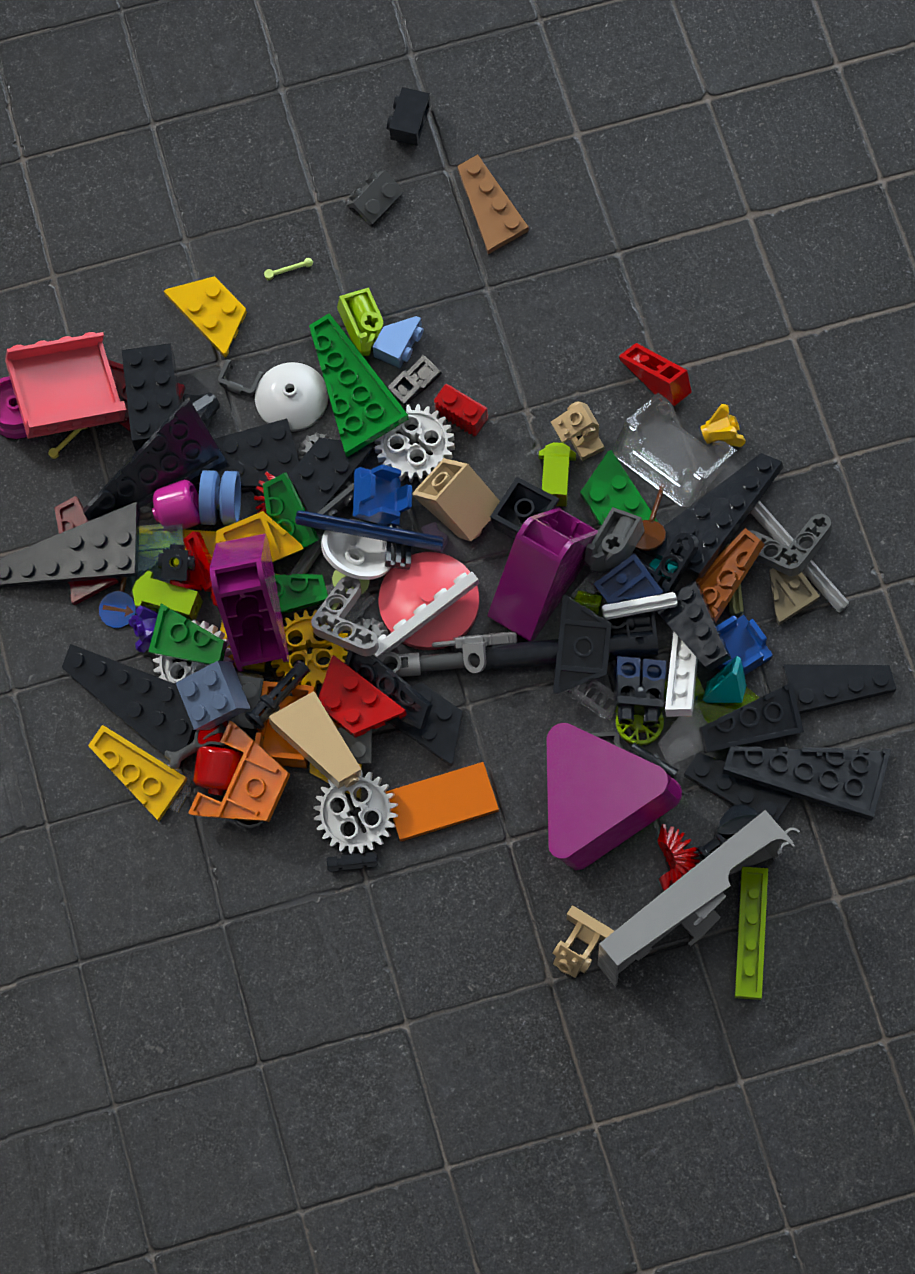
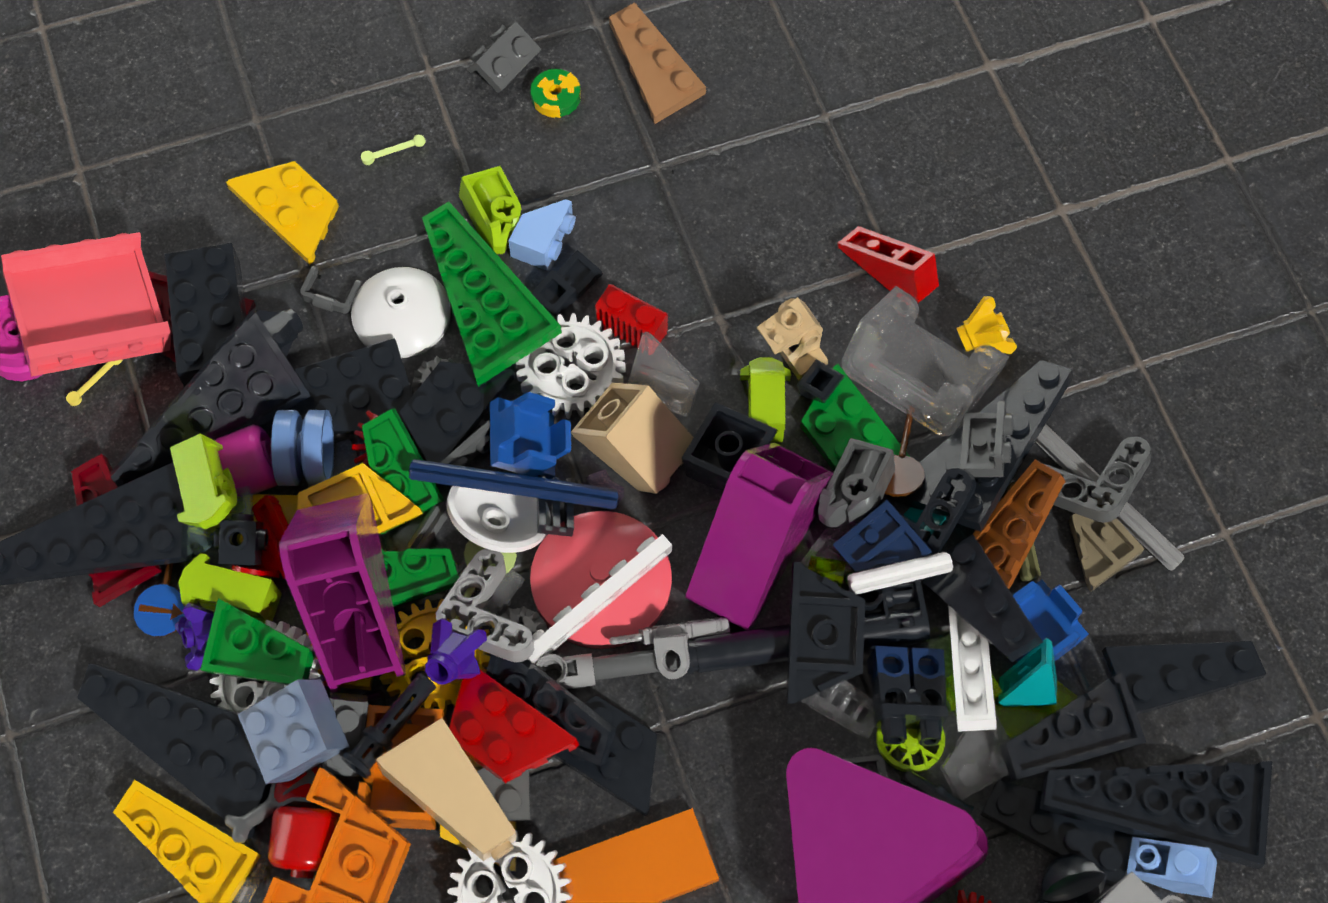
camera: 10 degrees left, 5 degrees down
(151, 522) = (203, 484): none -> lime piece
(322, 648) = (453, 653): none -> dark purple rock
(416, 236) = (555, 81): none -> piece
(481, 455) = (664, 375): none -> clear wing
(595, 463) = (819, 382): none -> black slope
(709, 514) = (984, 442): none -> dark grey bracket
(811, 815) = (1173, 866): none -> light blue slope

